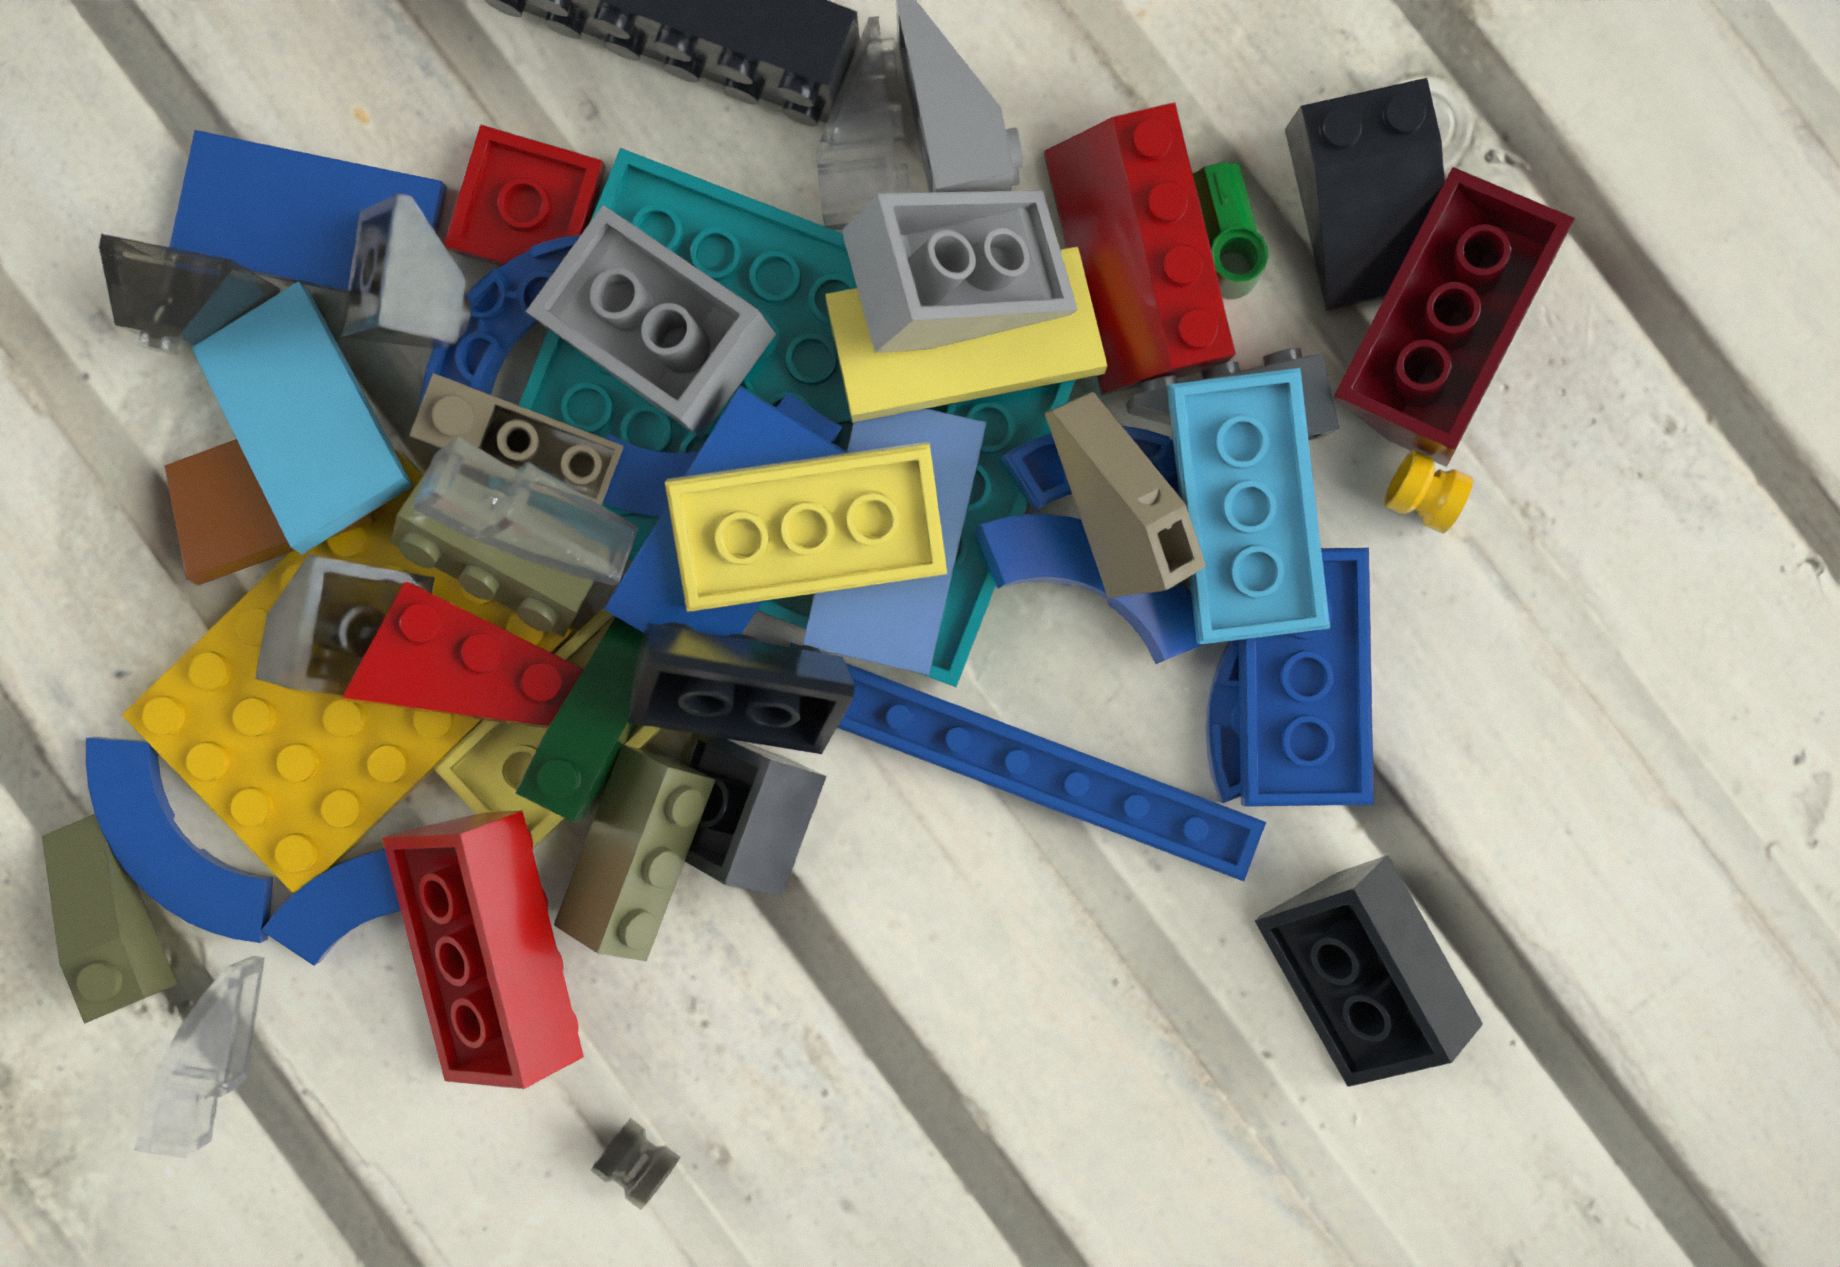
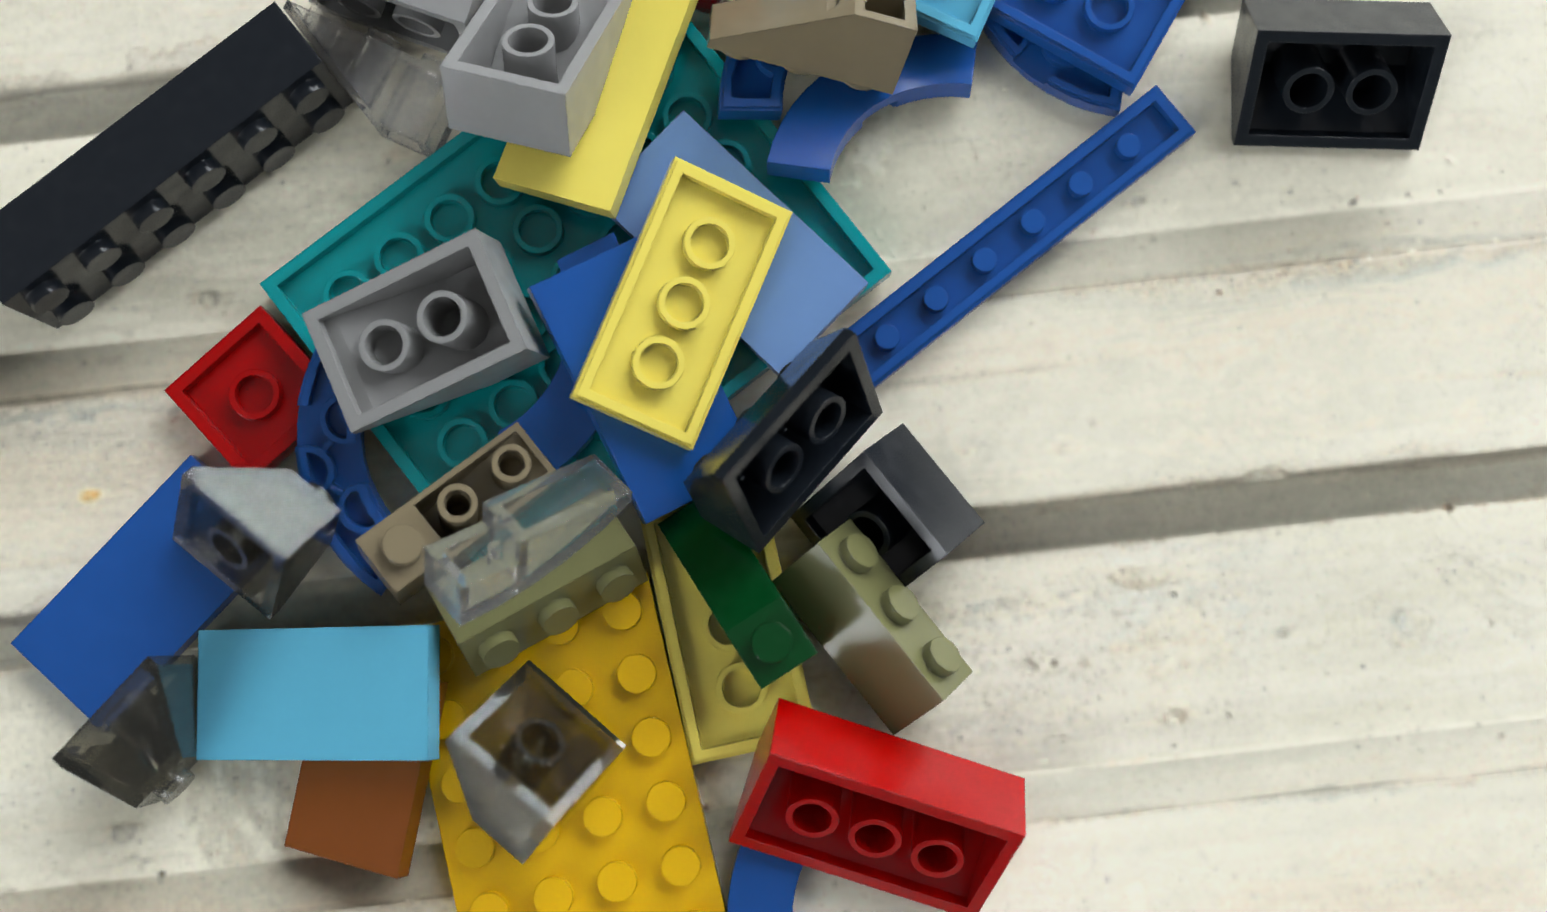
camera: 60 degrees left, 5 degrees down
(458, 664) = (619, 676): red wing -> none
(623, 1155) = (1144, 790): clear smoke wheel -> none

